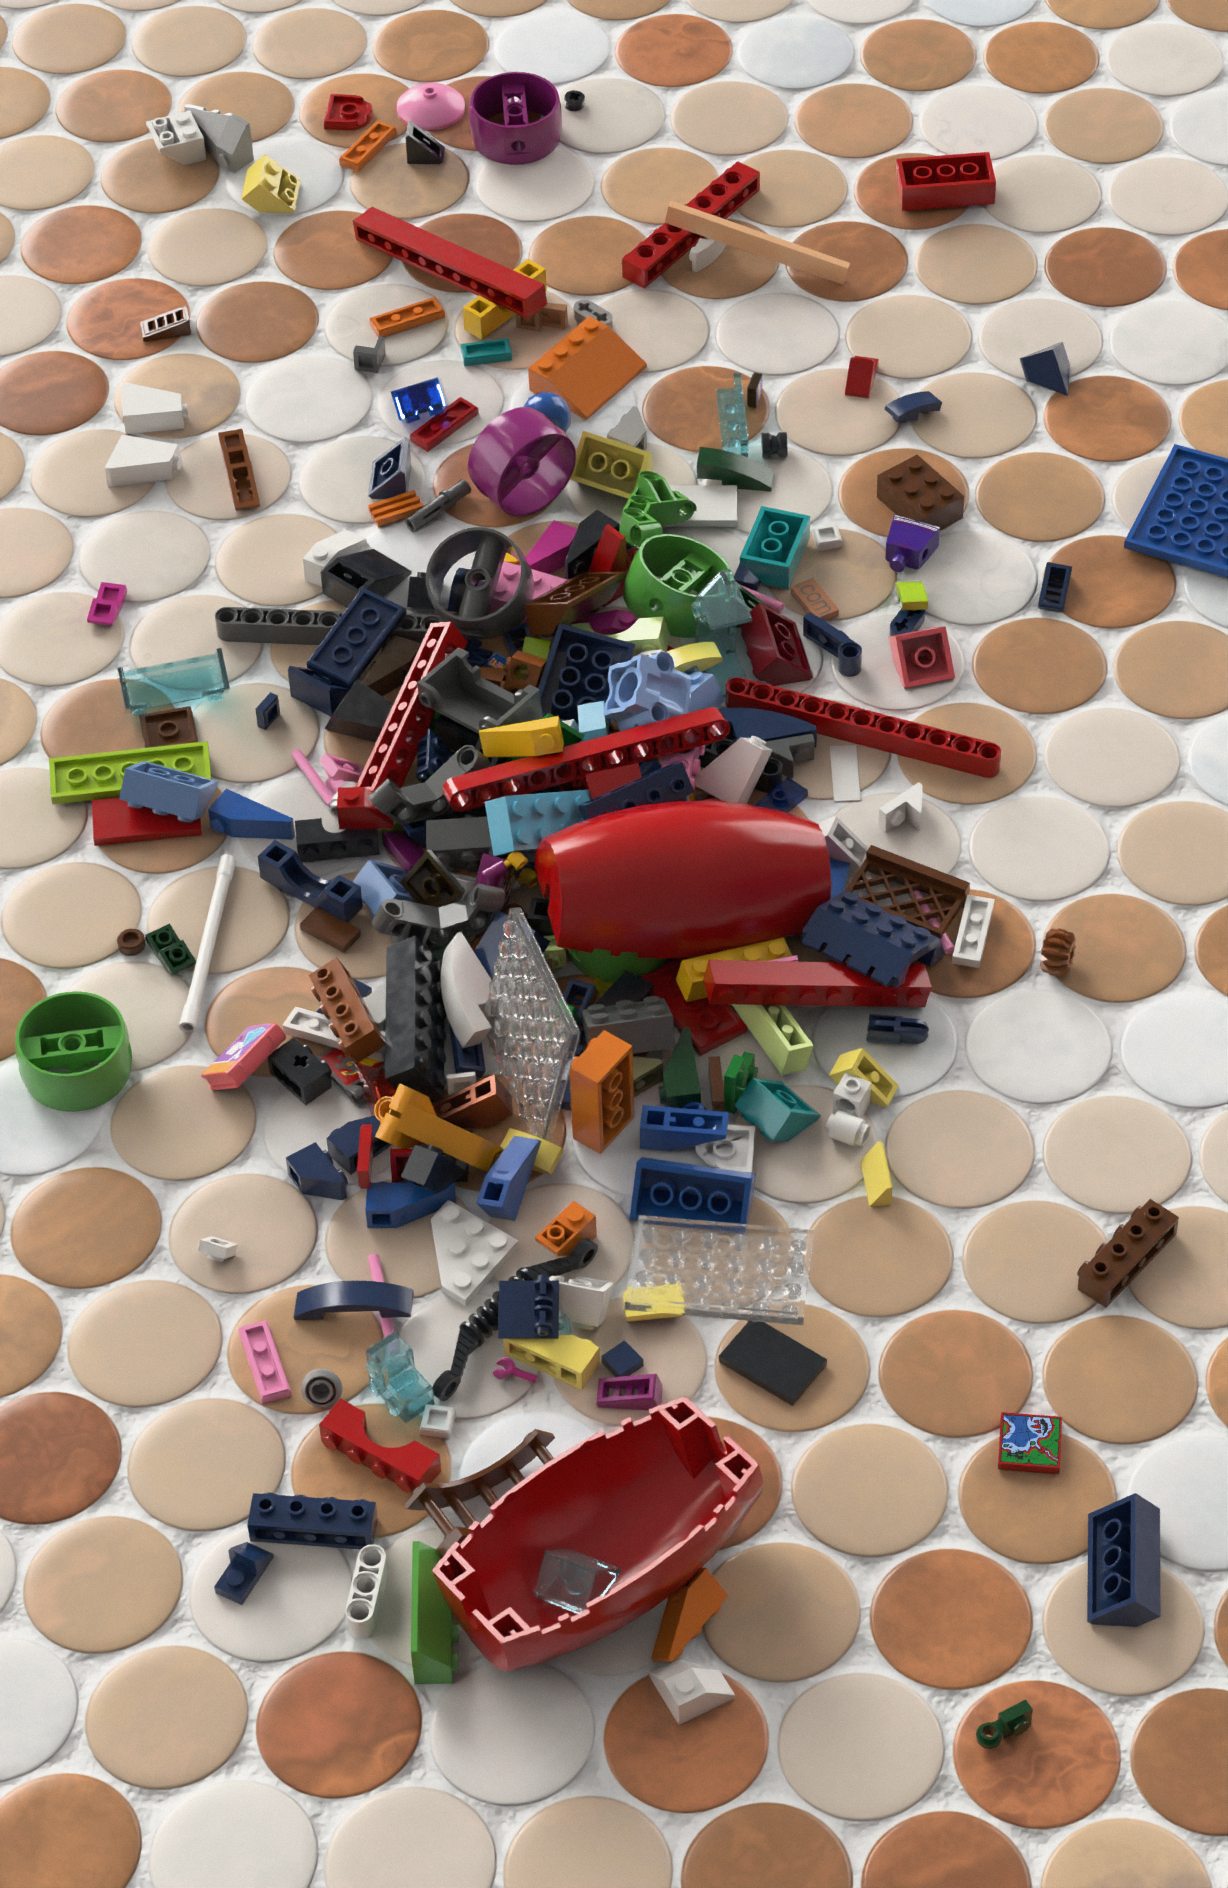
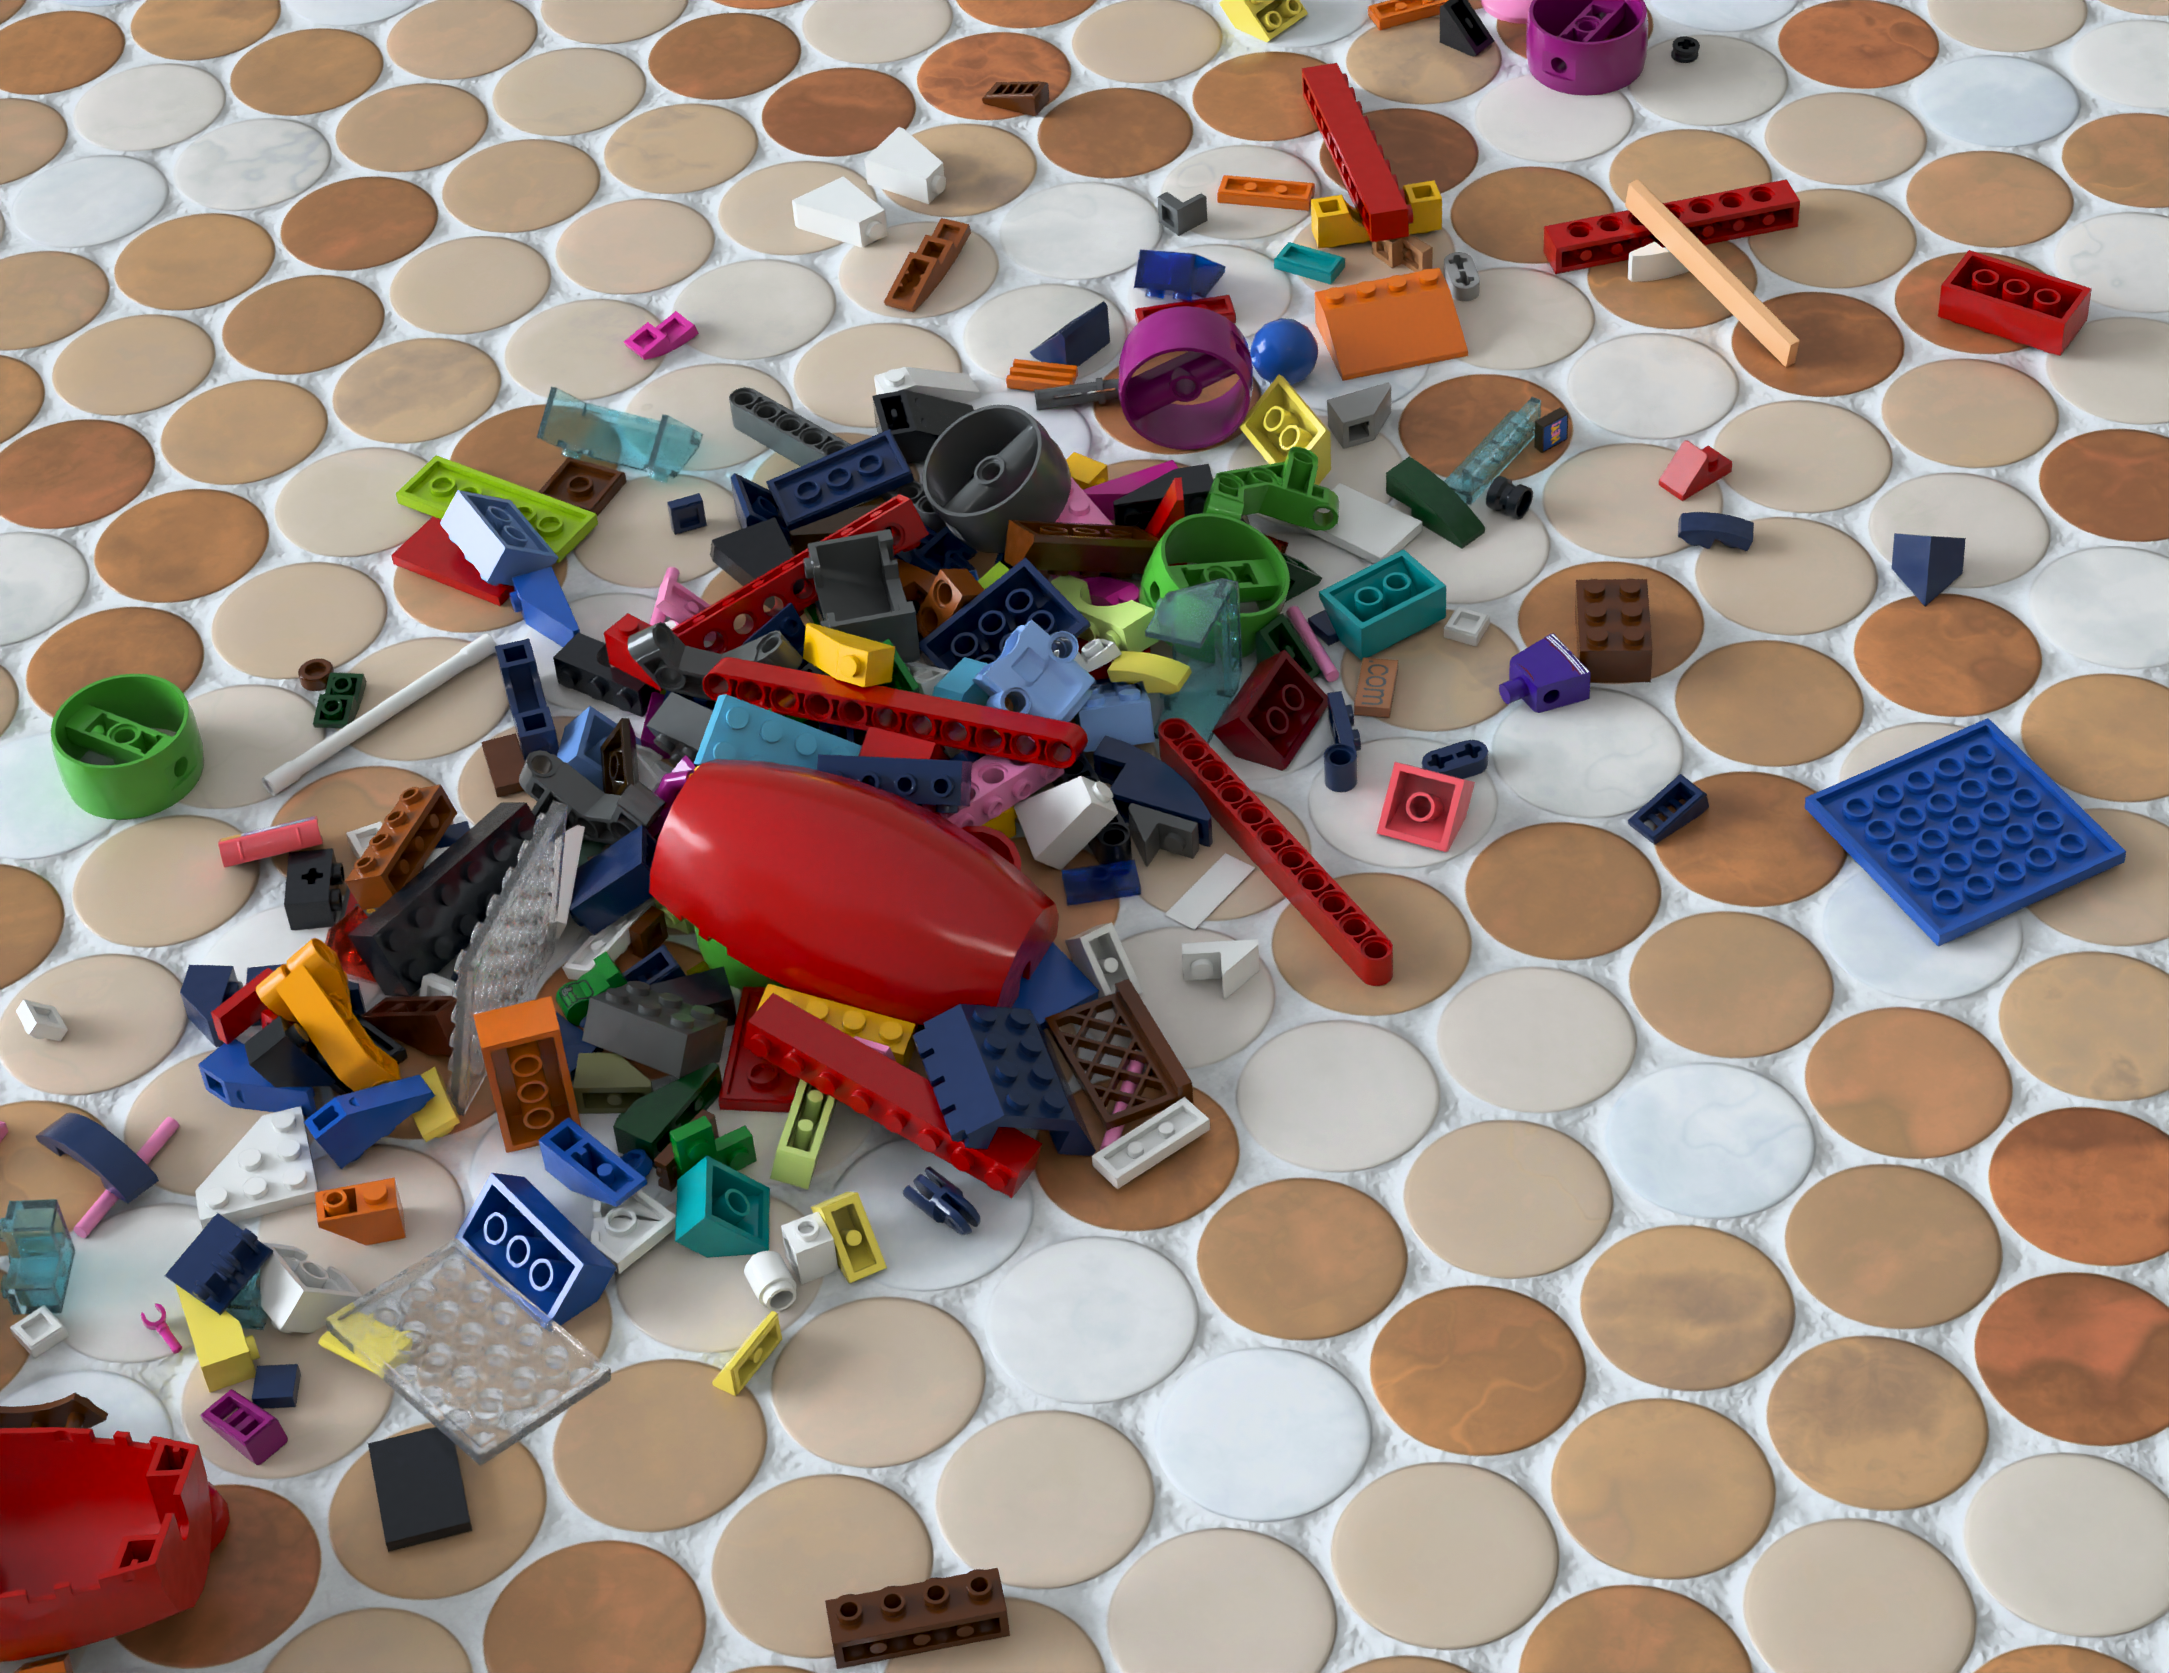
camera: 40 degrees right, 5 degrees down
(481, 1324) = (157, 1260): black piece -> none
(912, 595) = (1482, 732): lime slope -> none
(1057, 952) = (1209, 1219): dark orange gear -> none

